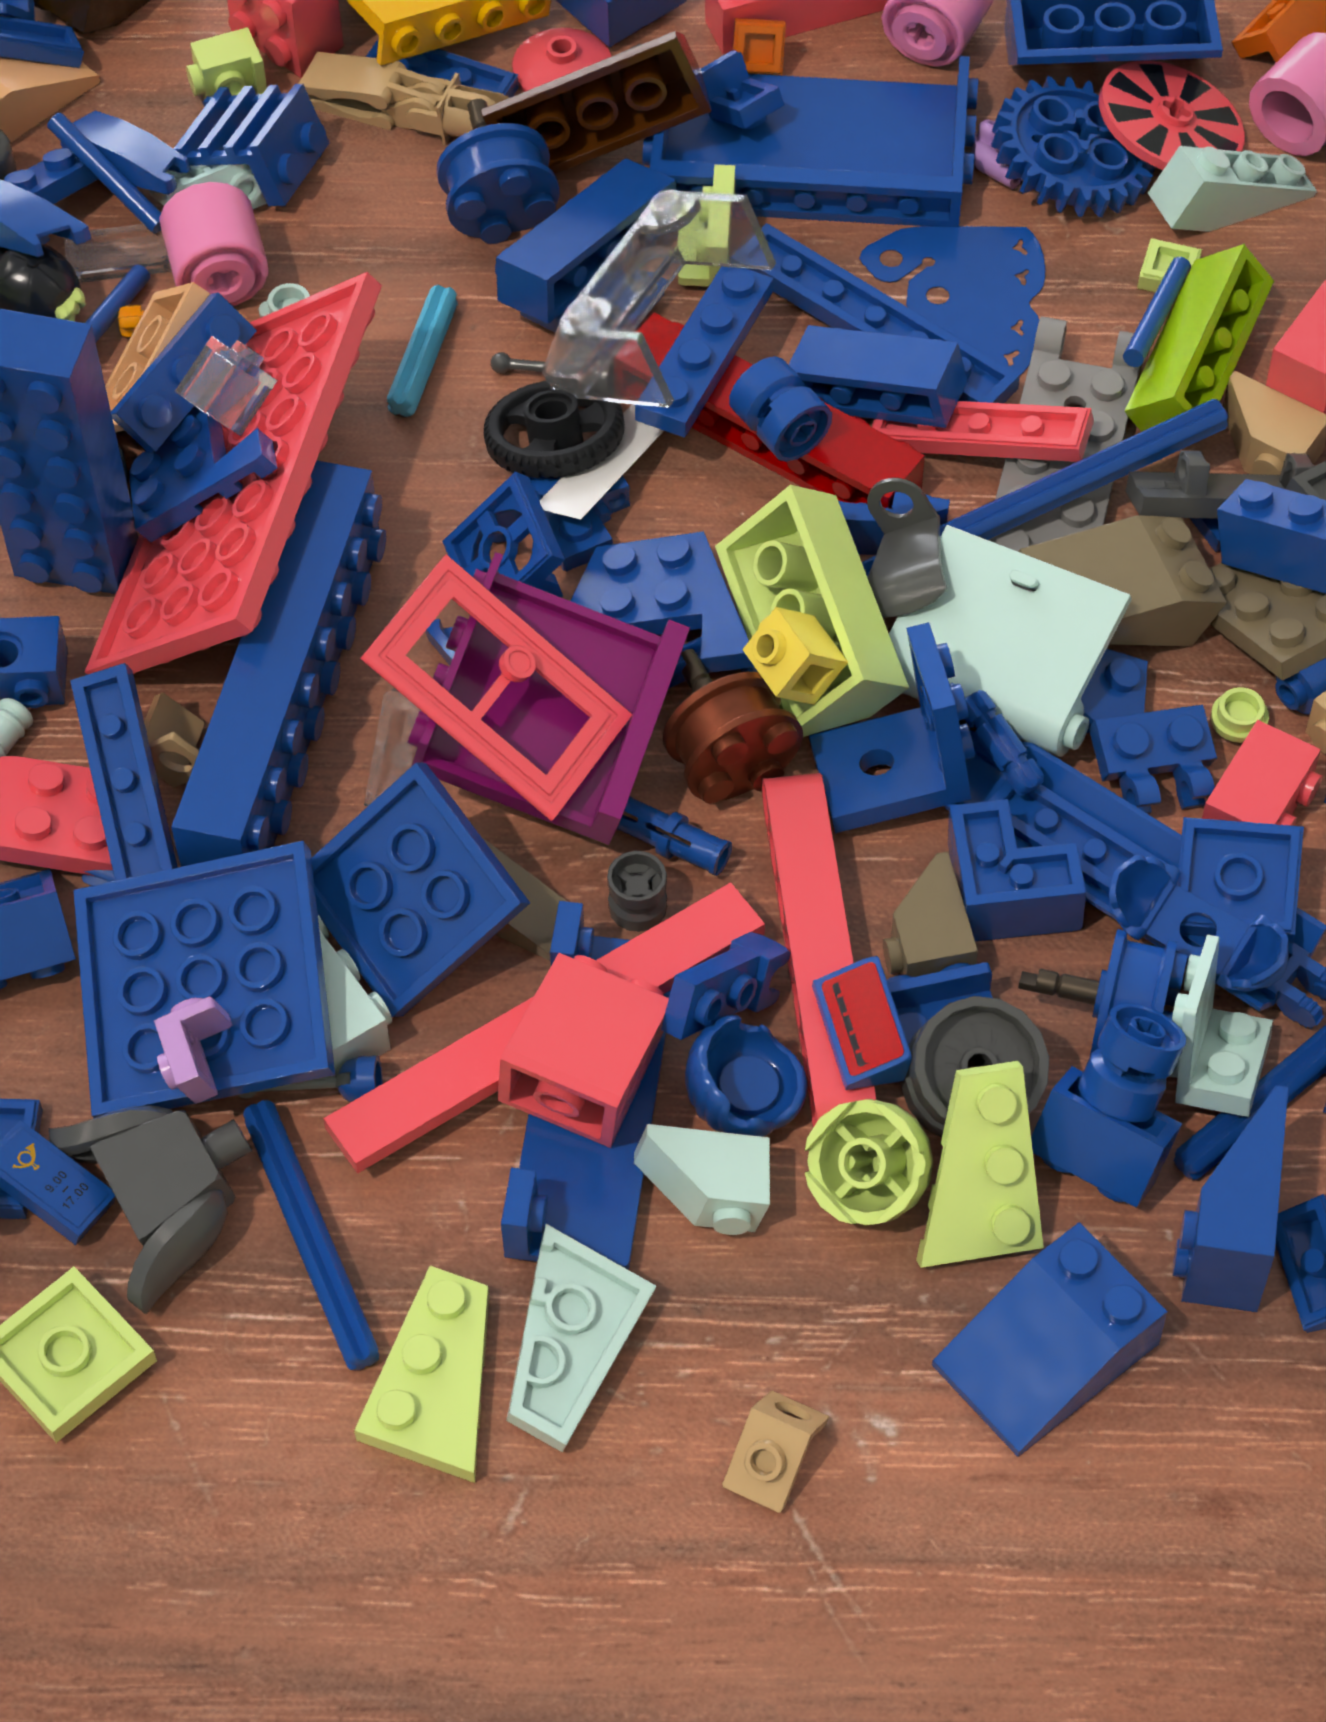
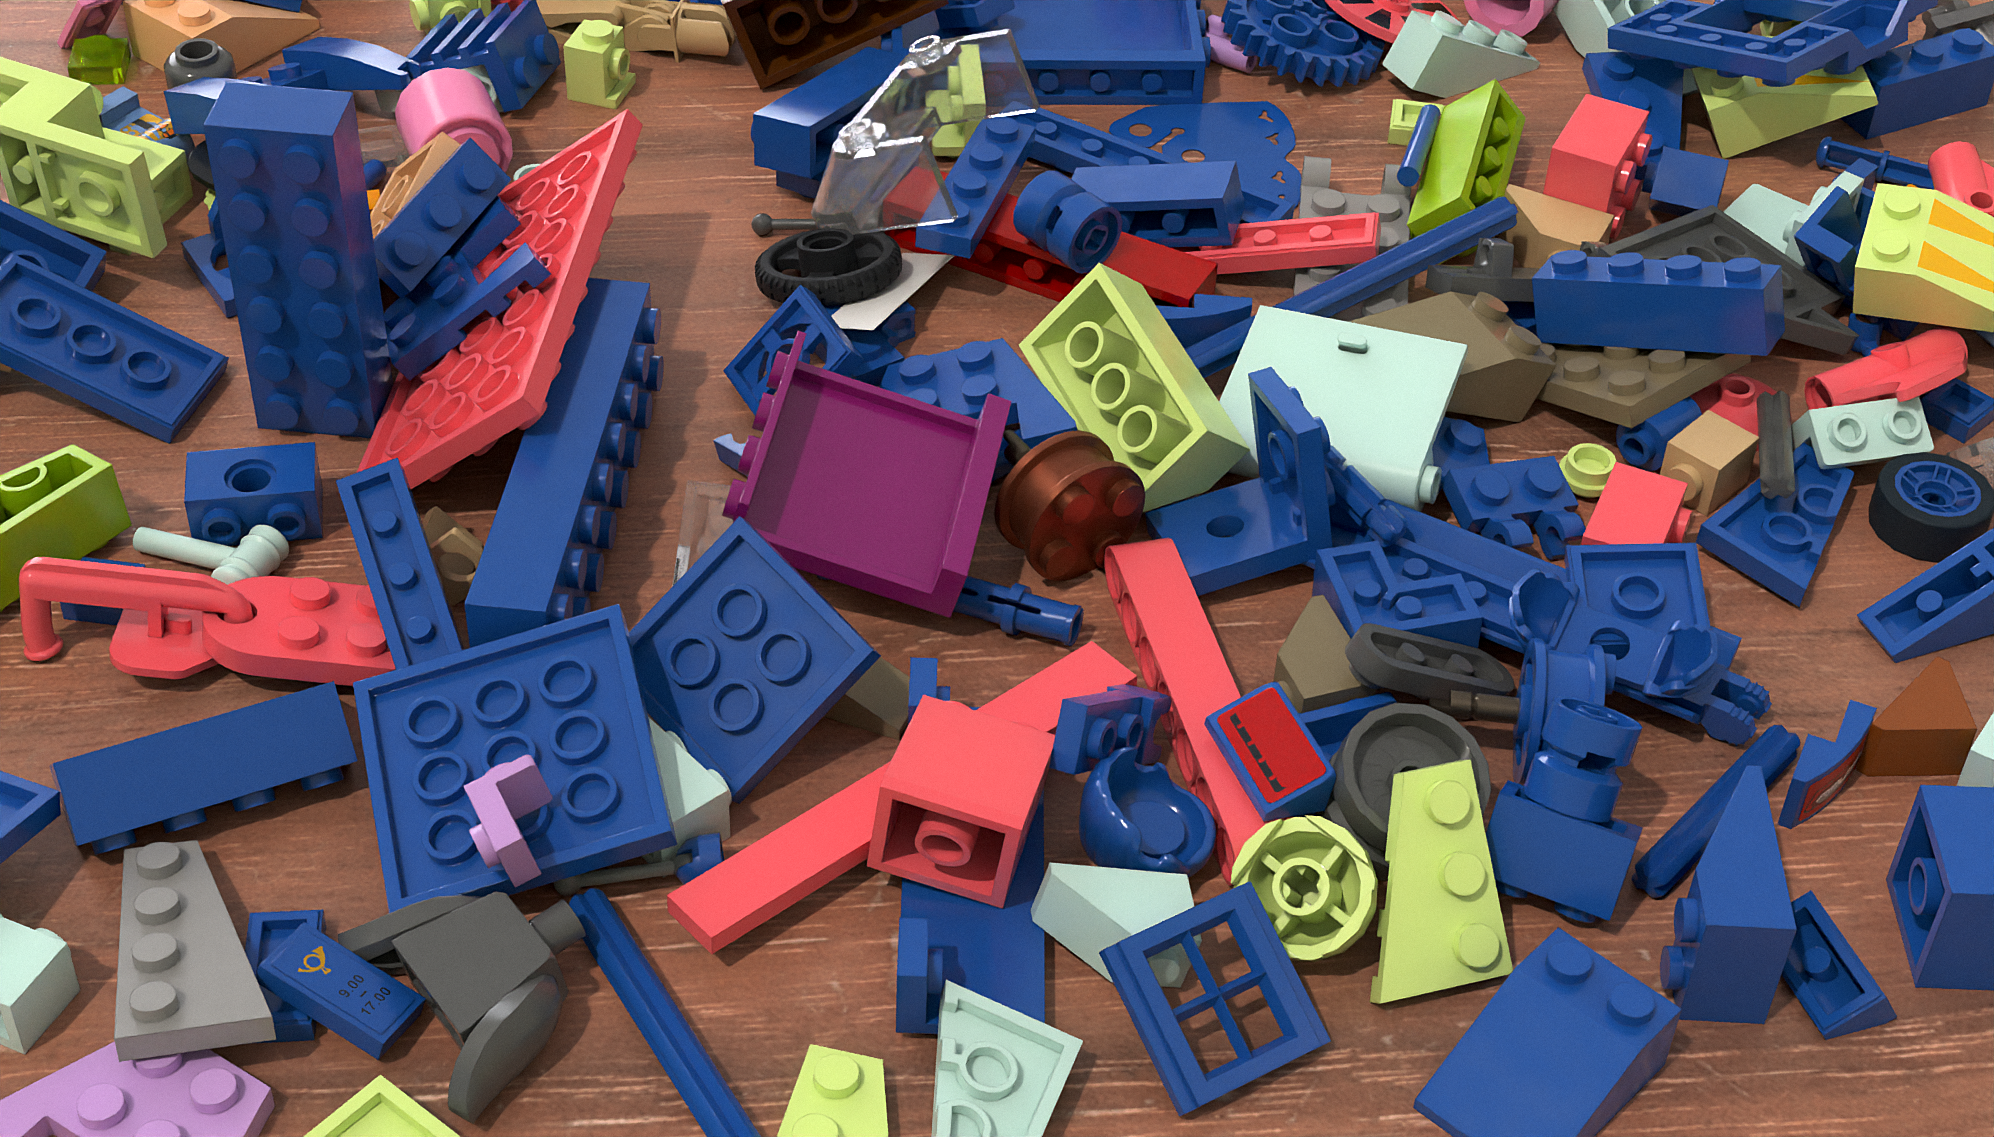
camera: 10 degrees left, 15 degrees down
(105, 171) = (335, 77): blue bar -> none
(227, 383) = (486, 215): clear brick -> none
(362, 158) = (597, 64): none -> yellowish green brick
(422, 351) = (679, 217): medium azure axle -> none
(497, 179) = (738, 65): blue wheel -> none
(525, 654) = (836, 427): coral door -> none
(637, 890) = (987, 658): dark grey wheel -> none
(722, 1278) = (1160, 1025): none -> blue piece
(795, 655) = (1129, 416): light yellow brick -> none
(908, 561) = (1225, 333): dark grey piece -> none
(1029, 938) = (1423, 664): none -> dark grey plate
(1222, 1047) = (1669, 763): light aqua bracket -> none

